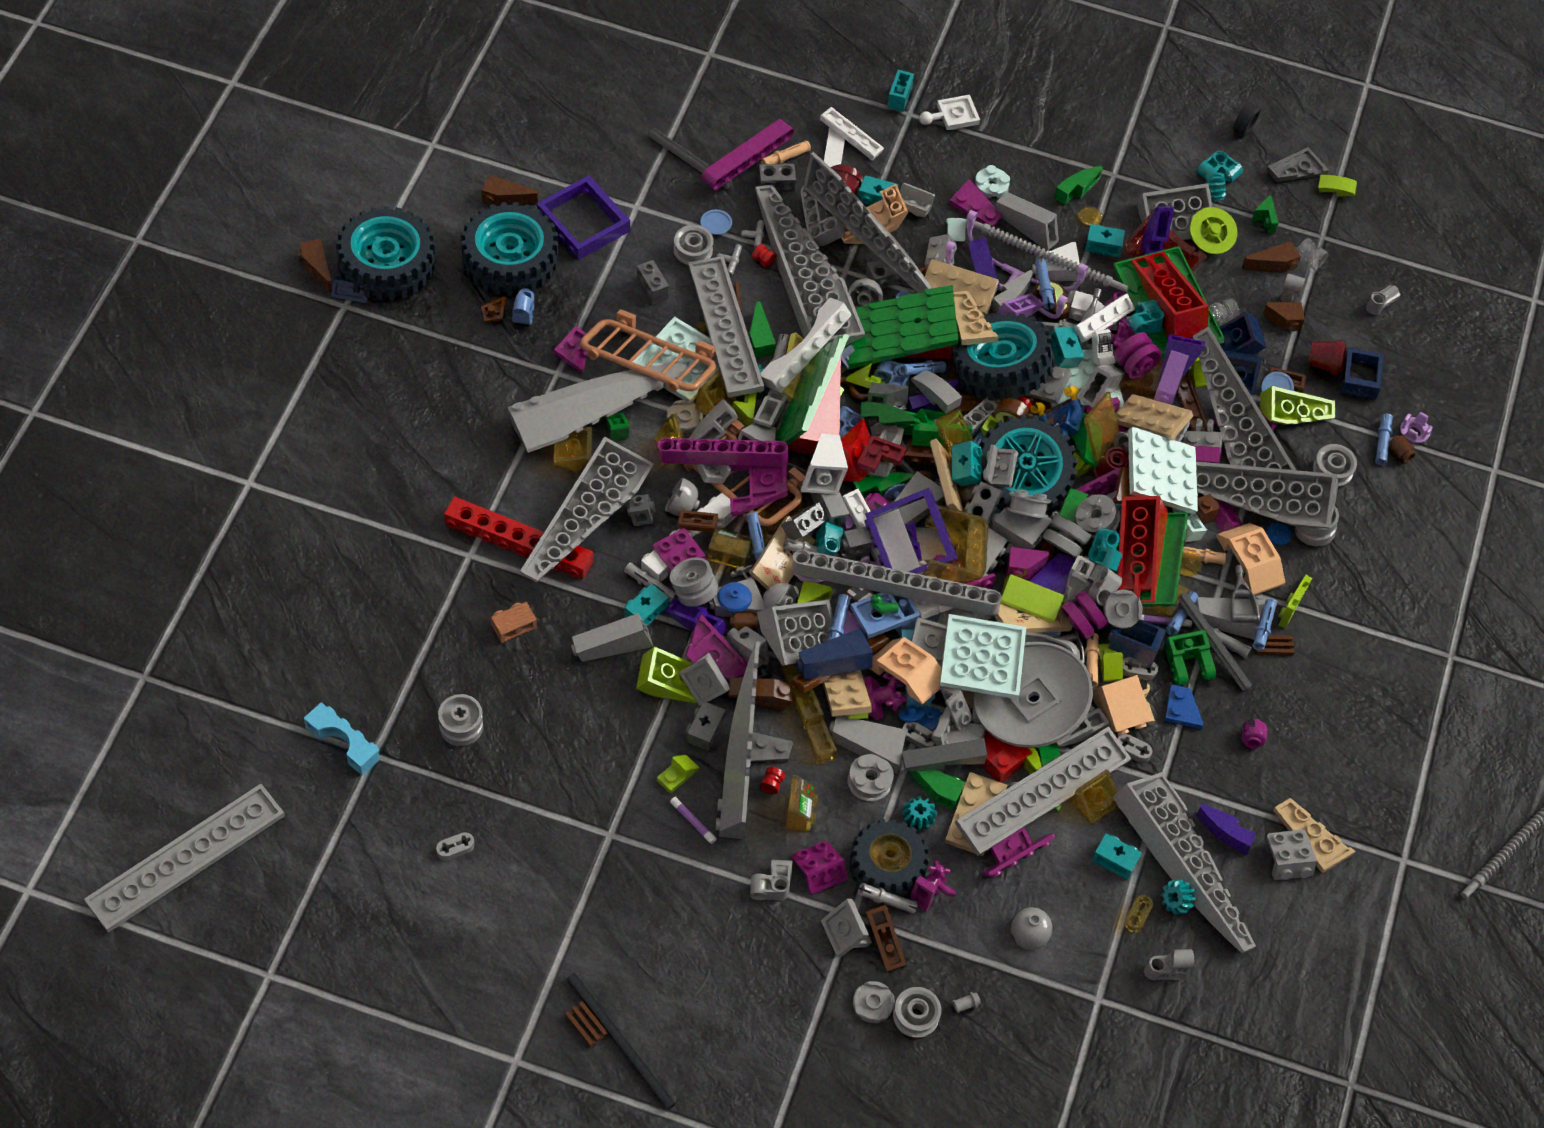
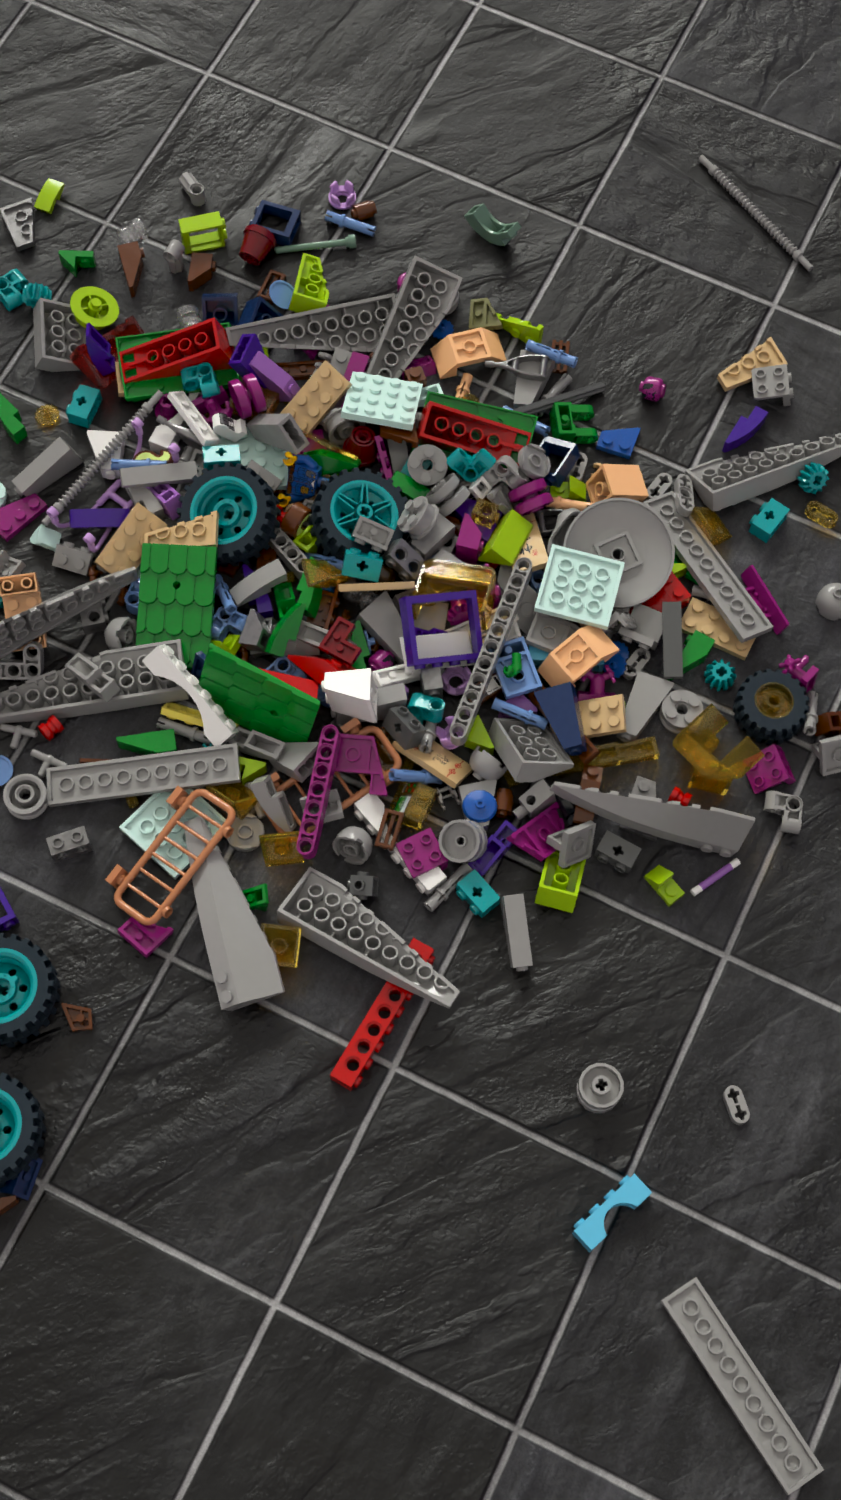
camera: 80 degrees left, 10 degrees up
(513, 621) = (484, 1026): nougat brick -> none
(523, 307) = (86, 985): medium blue piece -> none
(812, 271) = (92, 677): none -> light grey slope
(826, 787) = (699, 742): none -> clear yellow windscreen
(1034, 295) = (158, 474): none -> light grey slope
(1057, 568) = (483, 506): none -> clear yellow brick
(1134, 764) = (680, 500): none -> light grey beam
(1302, 566) = (483, 315): none -> olive wing
(1327, 308) = (203, 241): none -> lime window
(1336, 455) = (369, 270): light grey wheel -> none
(1360, 440) = (349, 241): none -> sand green piece
(1418, 563) = (489, 227): none -> sand green arch

